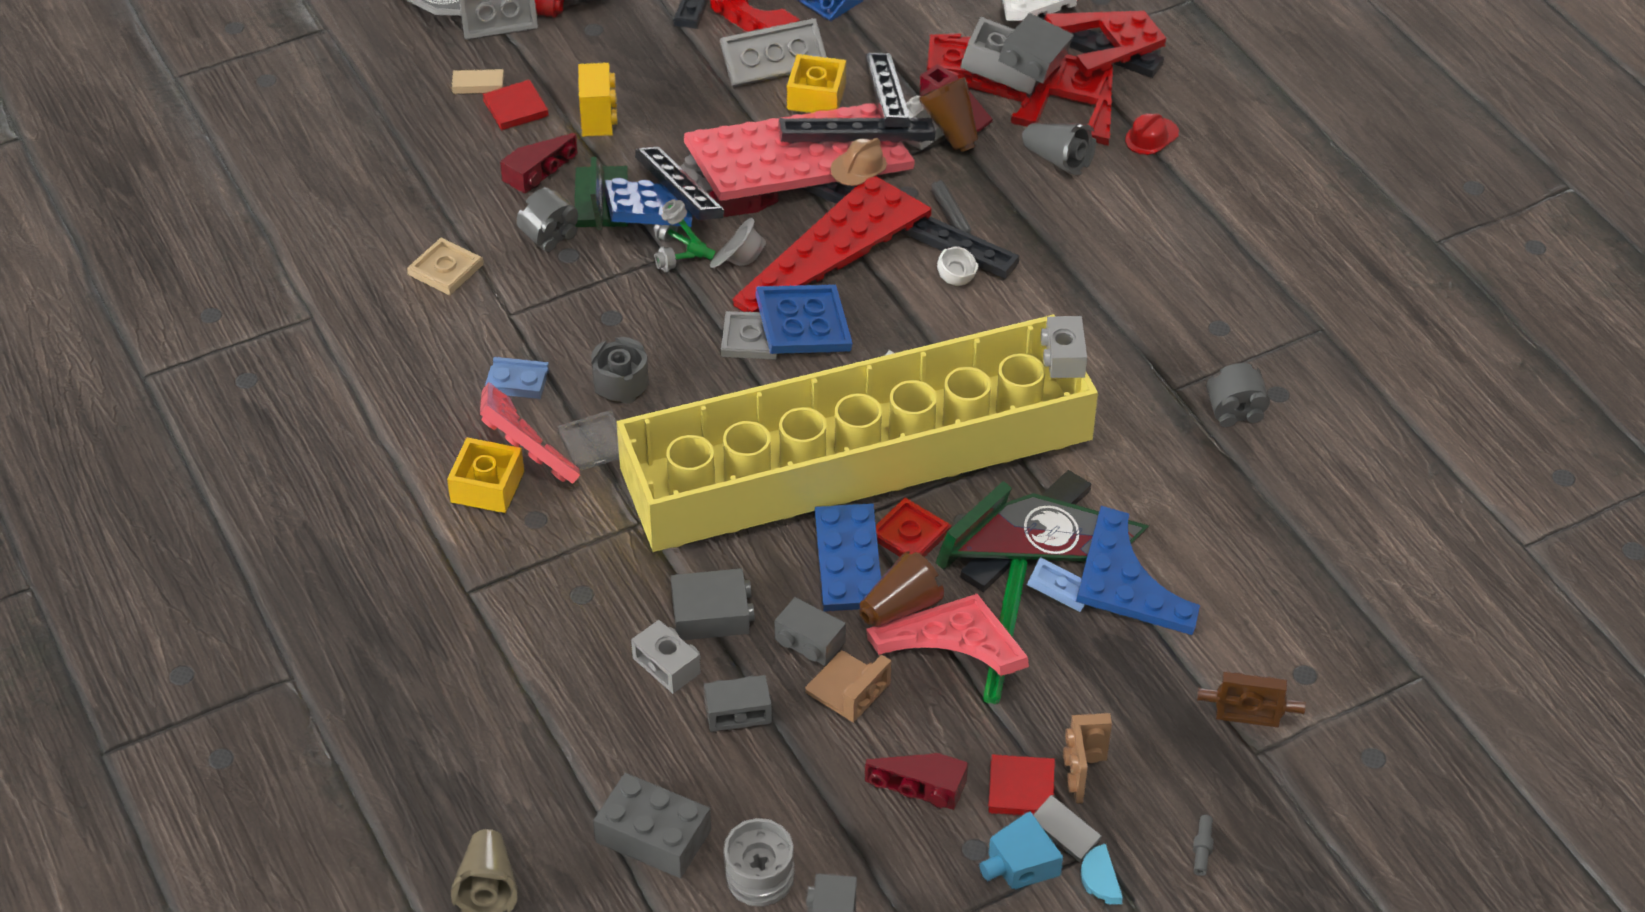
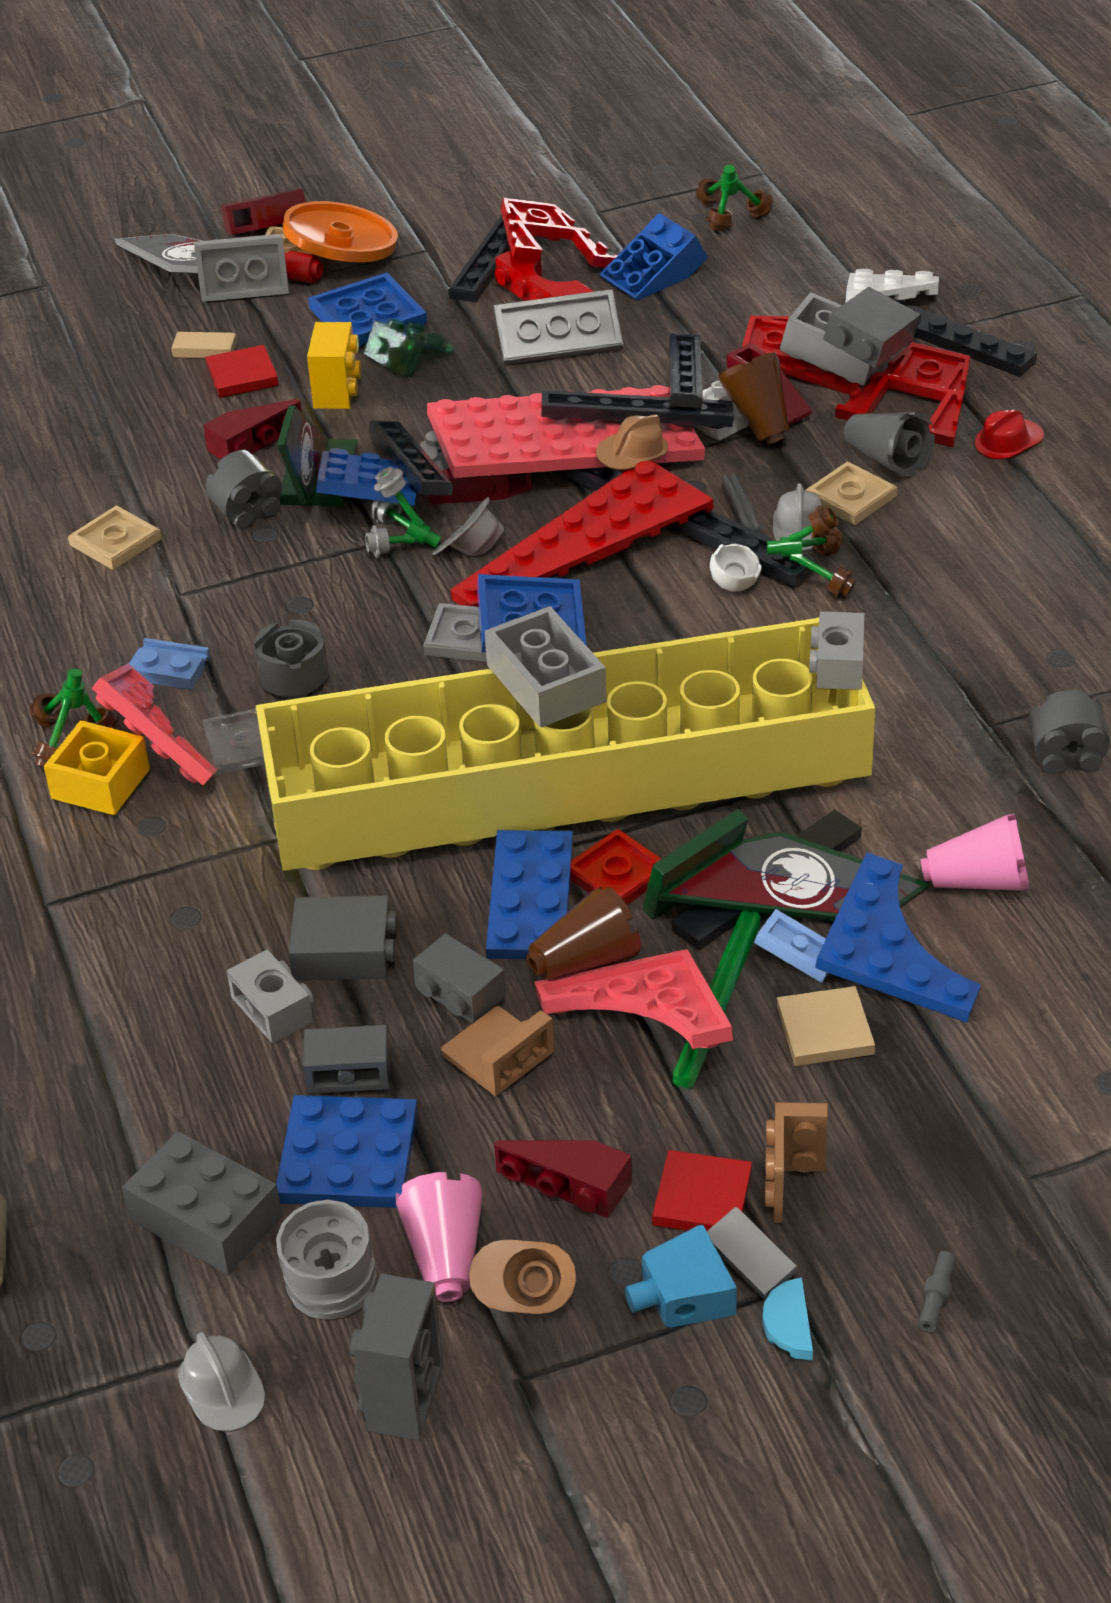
camera: 10 degrees right, 5 degrees down
(431, 426) = (53, 709): none -> plant
(610, 39) = (366, 302): none -> blue plate
(647, 75) = (400, 344): none -> clear green bracket
(751, 774) = (347, 1150): none -> blue plate
(816, 84) = (601, 360): yellow brick -> none
(839, 831) = (442, 1229): none -> bright pink cone
(843, 376) = (545, 666): none -> light grey brick
(906, 862) = (522, 1276): none -> medium nougat piece
(999, 220) = (793, 513): none -> light grey piece
(1024, 238) = (825, 540): none -> plant
(1035, 192) = (853, 492): none -> tan tile
(1089, 646) = (825, 1026): none -> tan tile
(1127, 31) = (989, 321): red wing -> none
(1186, 504) = (980, 859): none -> bright pink cone
(1251, 699) = (1029, 1105): reddish brown plate -> none

